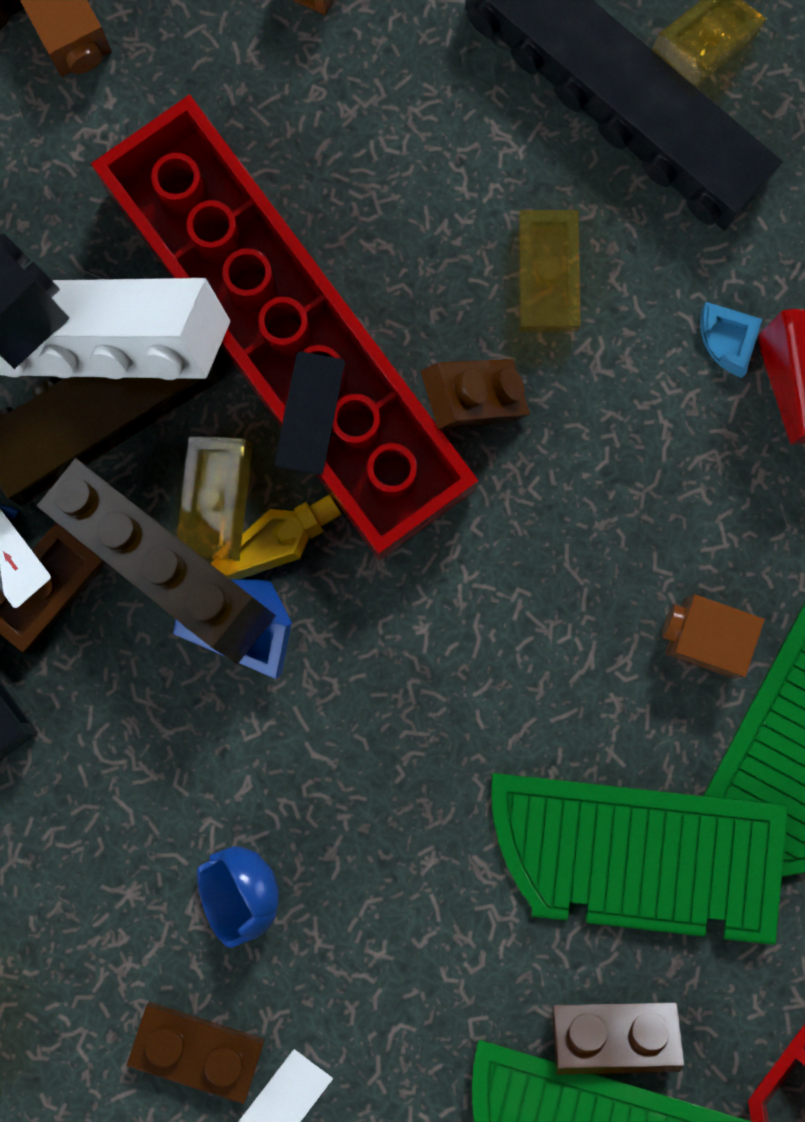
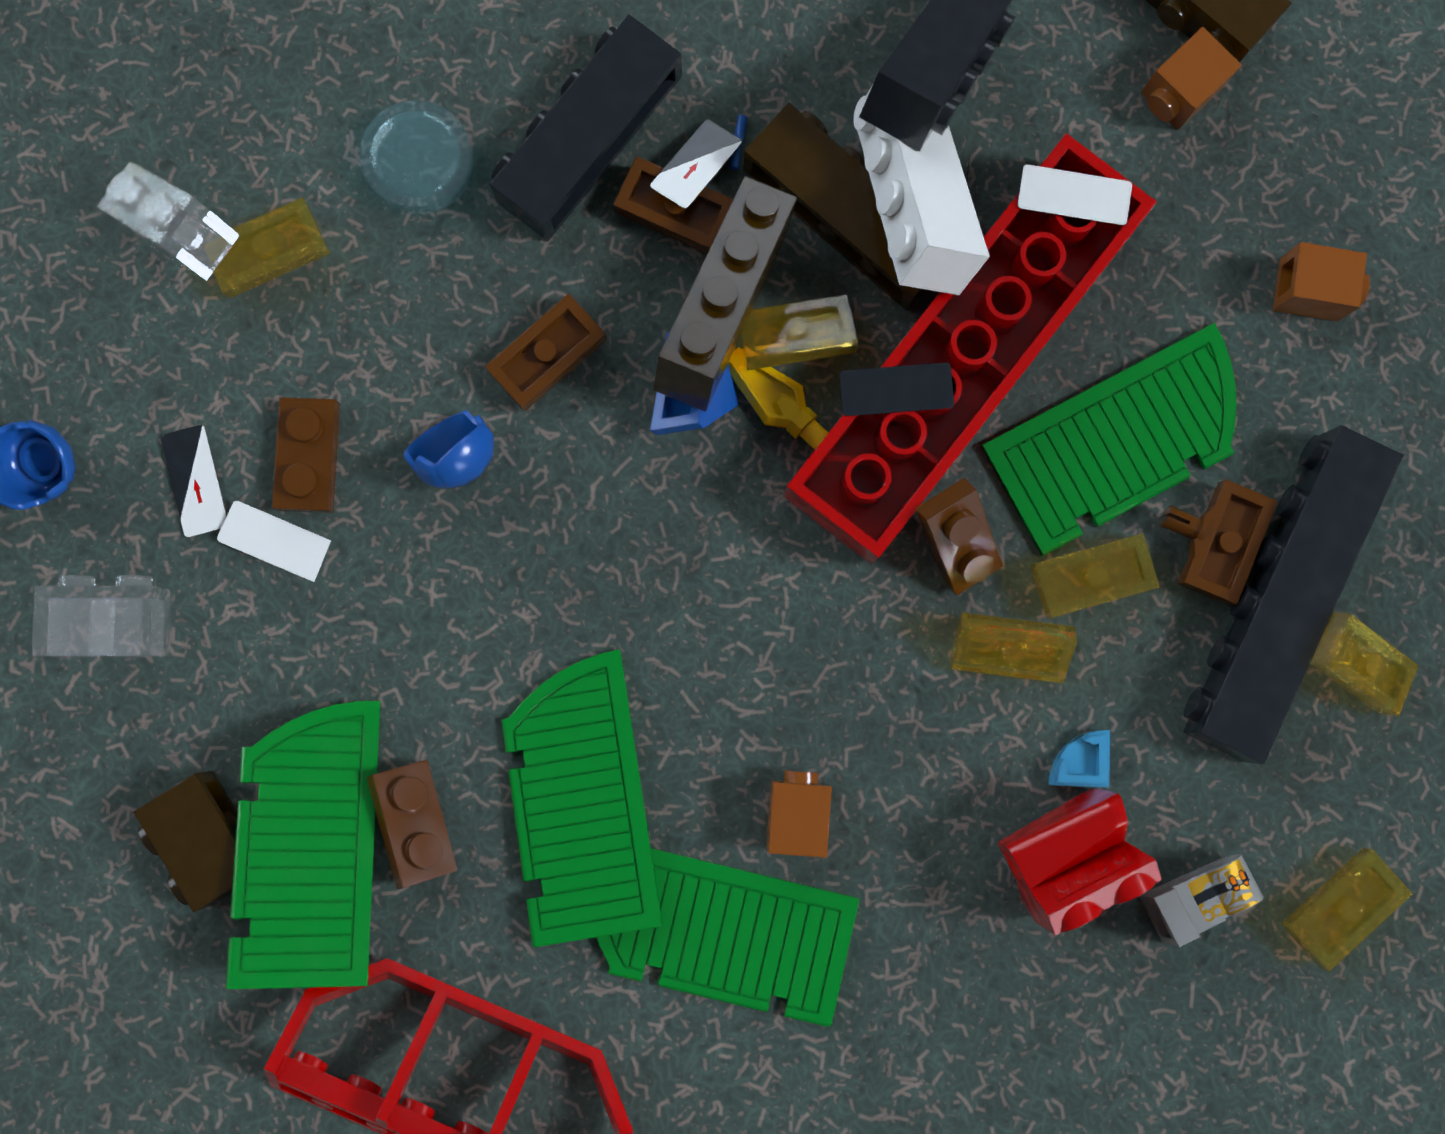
camera: 70 degrees right, 0 degrees up
(158, 174) = (1075, 194): none -> white sticker
(159, 766) = (546, 352): none -> reddish brown plate
(415, 205) = (1119, 440): none -> green piece
(546, 134) = (1222, 540): none -> reddish brown plate
(599, 372) = (1013, 647): none -> clear yellow plate

